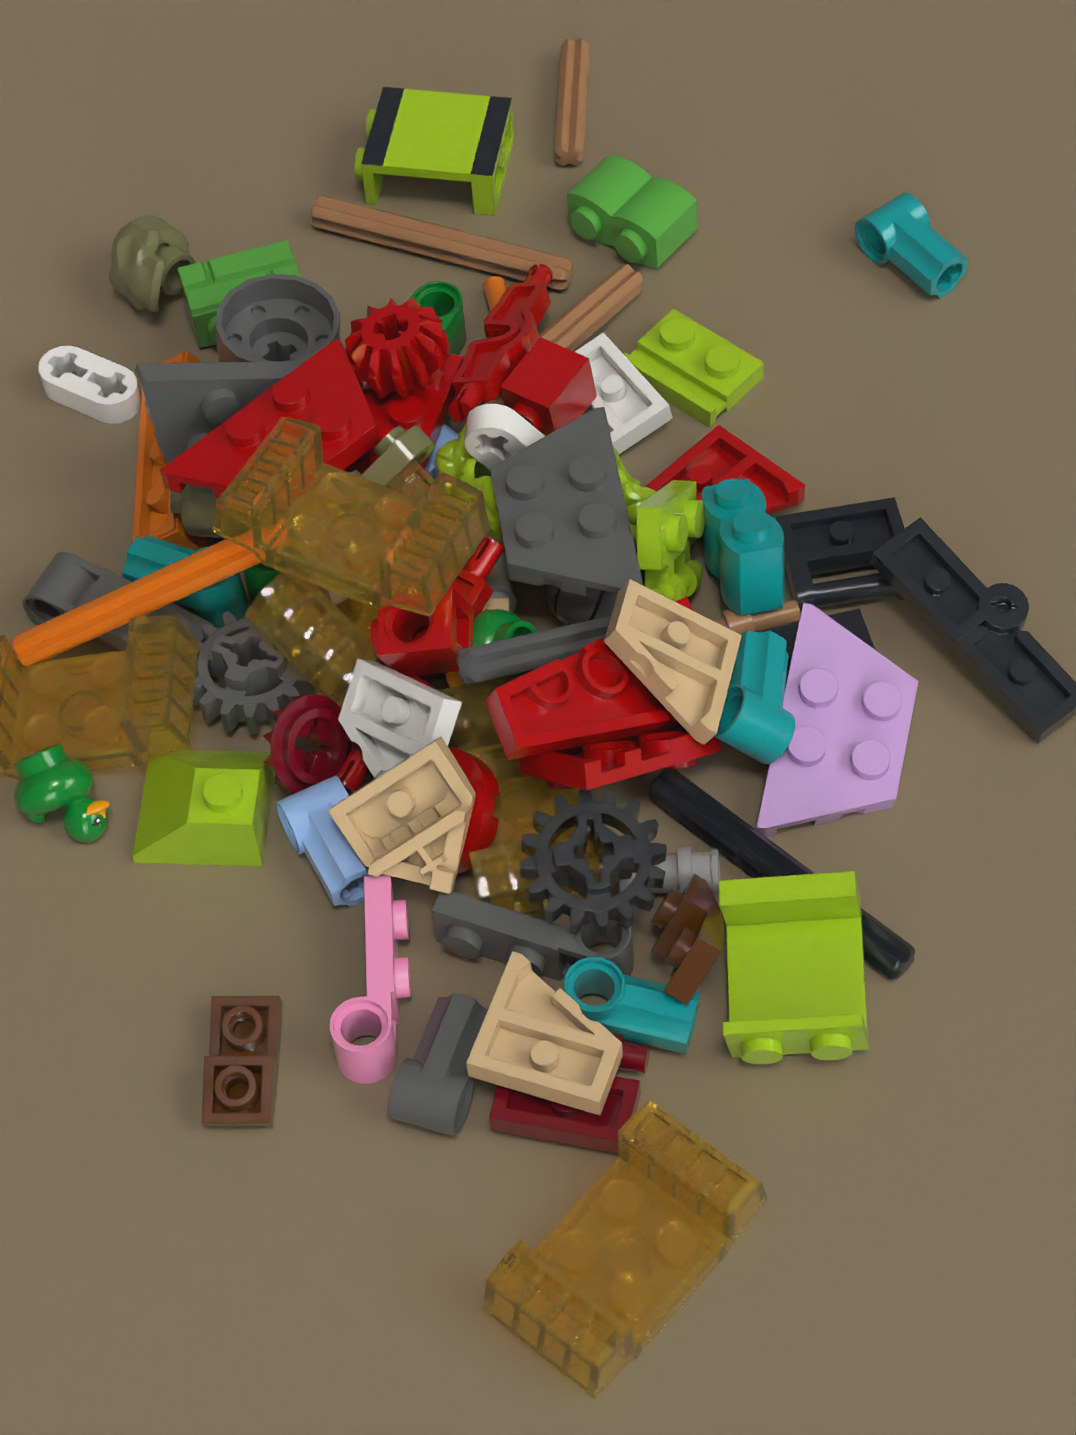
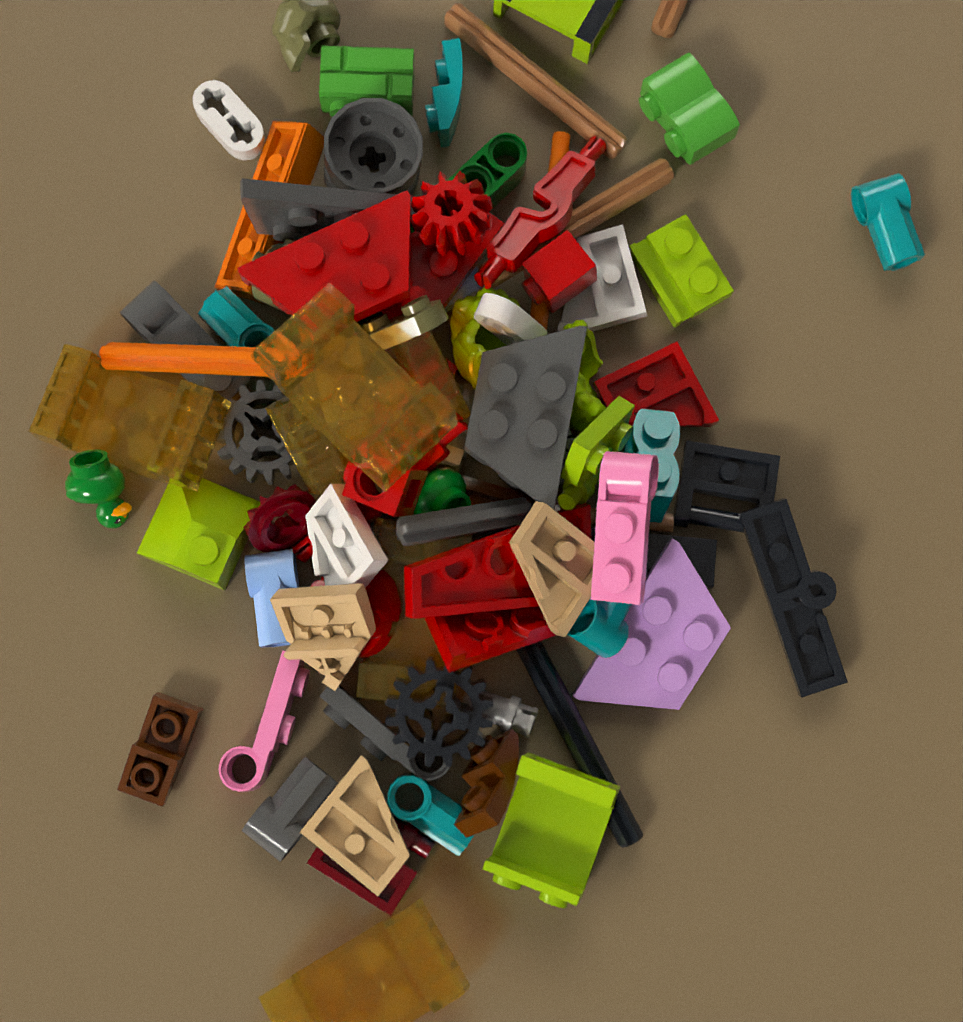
camera: 10 degrees right, 25 degrees up
(341, 270) = (447, 97): none -> teal slope
(737, 585) = (622, 526): none -> bright pink plate

